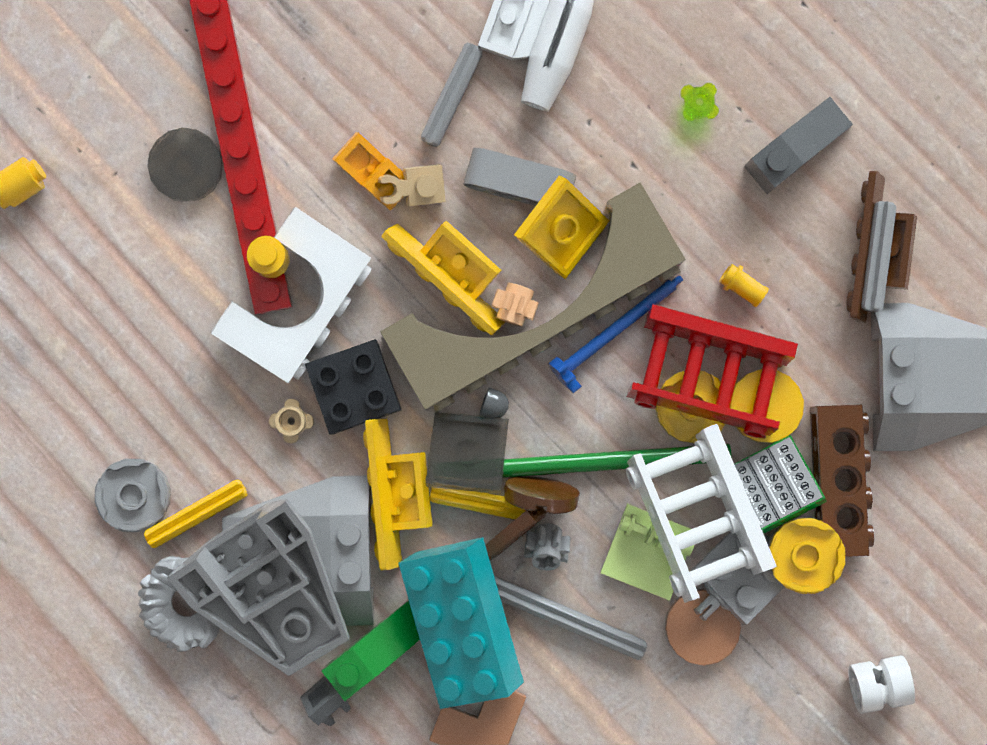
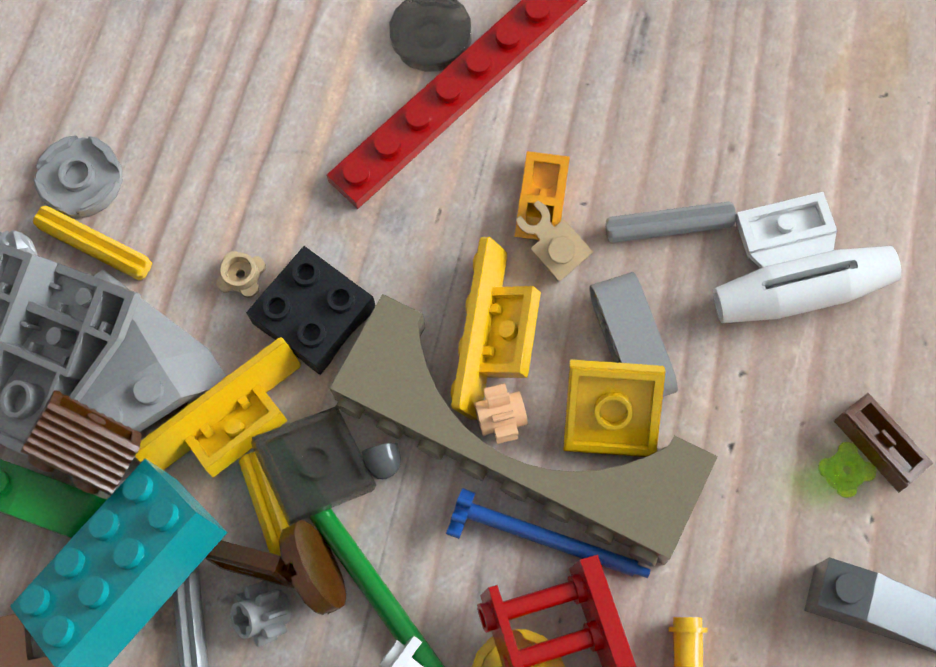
camera: 65 degrees right, 15 degrees down
(268, 256) = (386, 141): yellow brick -> none
(338, 269) = (420, 219): white arch -> none
(364, 599) = (81, 444): none -> reddish brown brick
(697, 70) = (882, 441): none -> reddish brown tile

